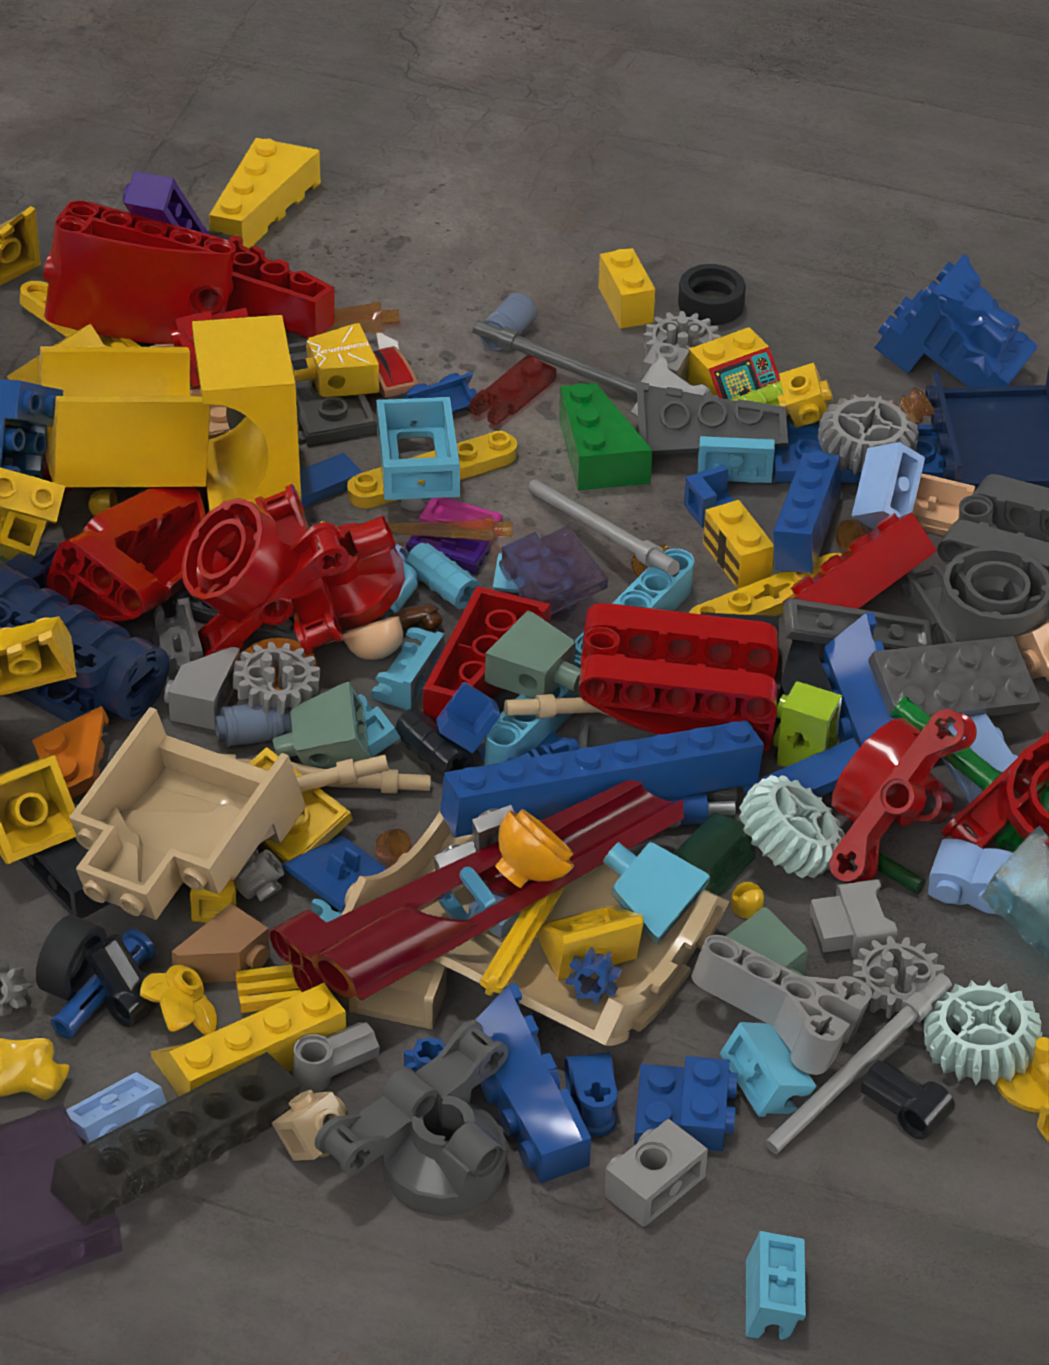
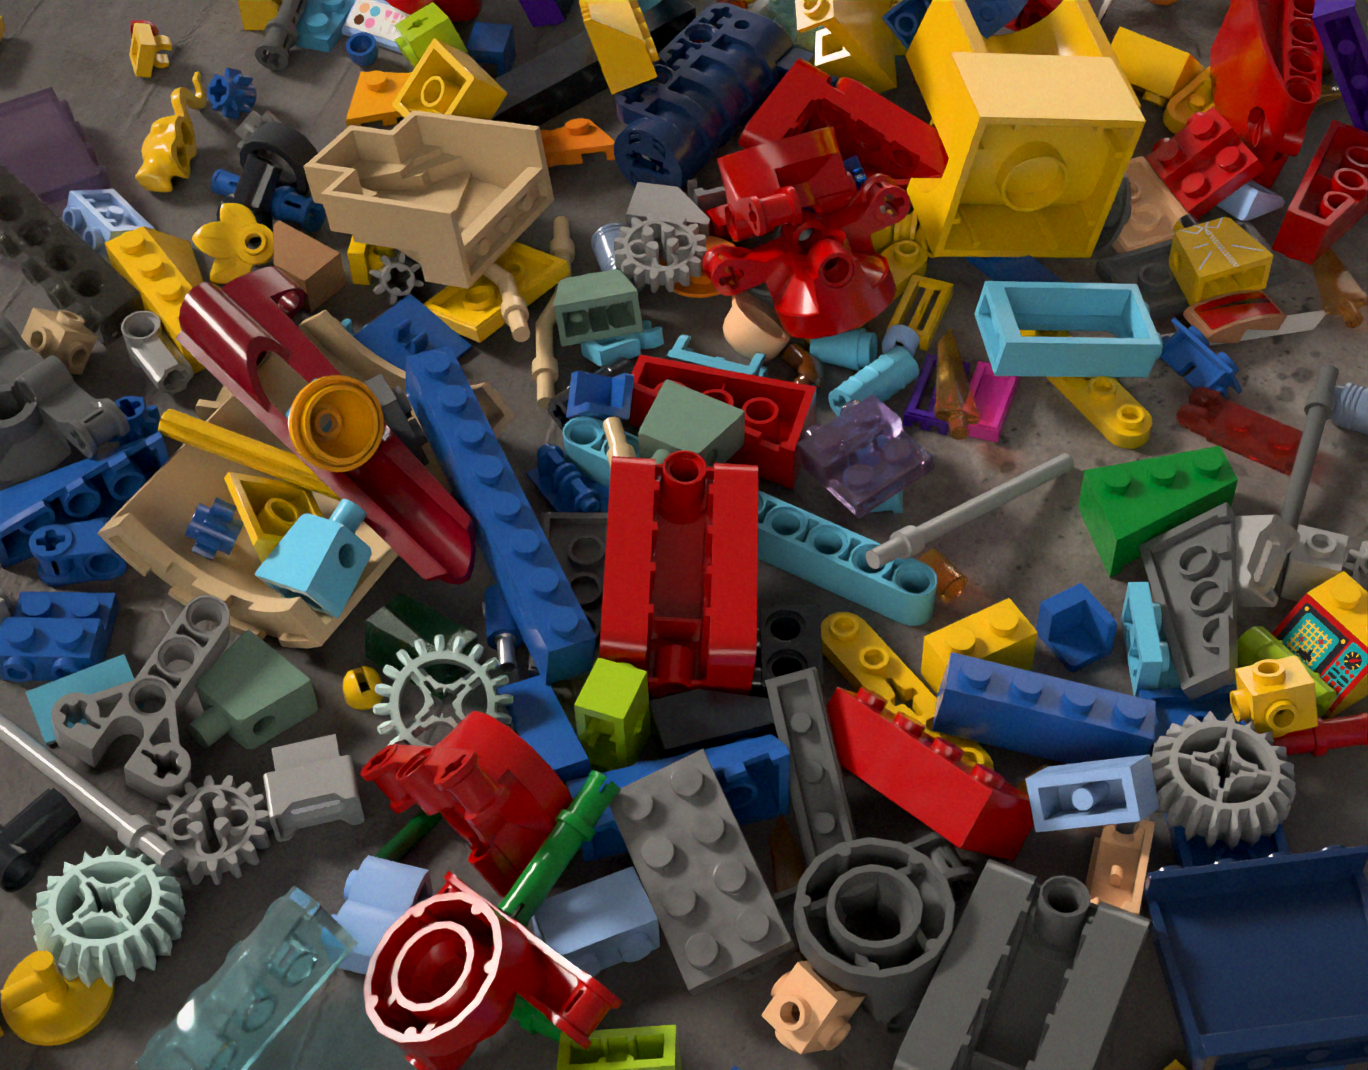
camera: 90 degrees right, 5 degrees up
(916, 405) = (1288, 839): clear orange bush -> none

